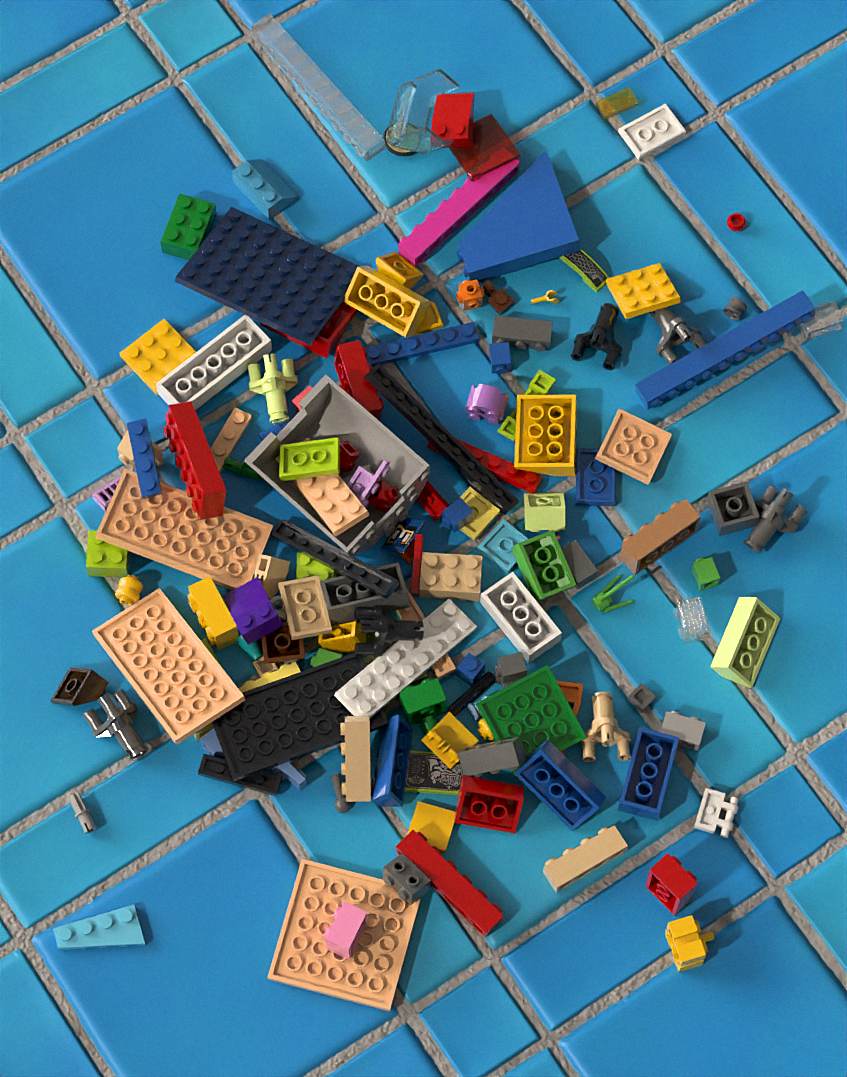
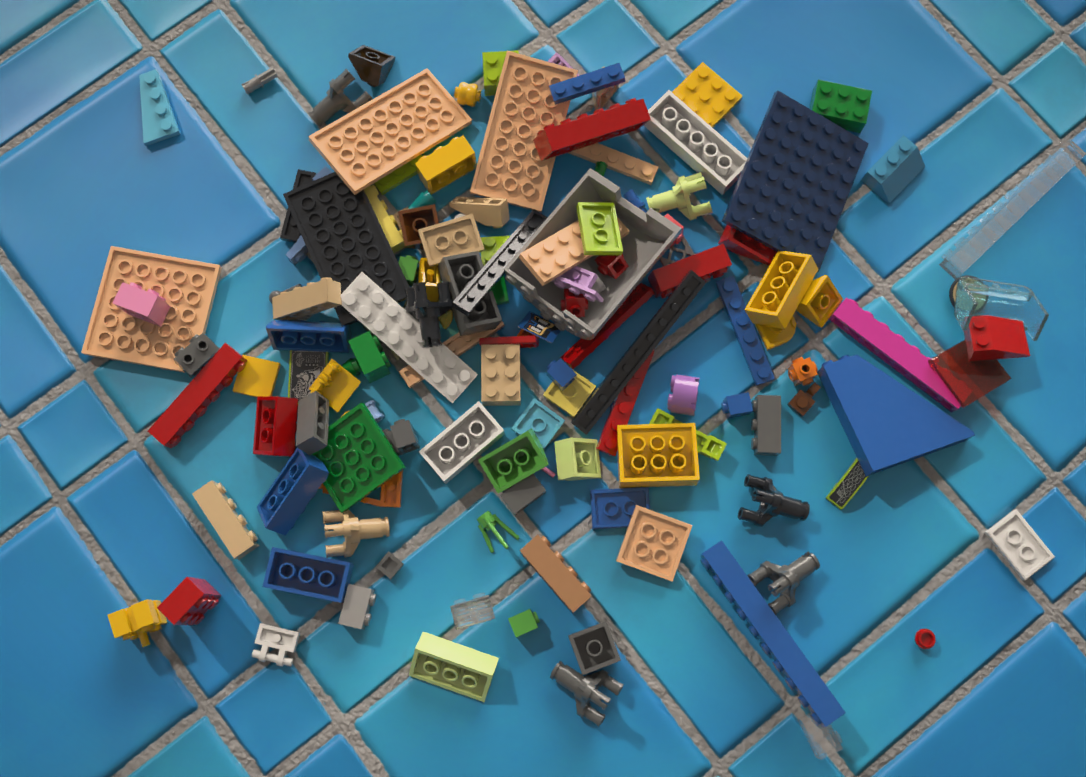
camera: 85 degrees right, 10 degrees up
(252, 610) = (445, 194): dark purple slope -> none
(470, 669) = (408, 400): blue brick -> none
(471, 694) = (385, 402): black axle -> none
(548, 297) = (810, 448): yellow hand -> none
(617, 103) = (1046, 505): clear yellow plate -> none
(643, 291) = (828, 543): yellow plate -> none
(735, 308) = (822, 641): dark grey wheel -> none

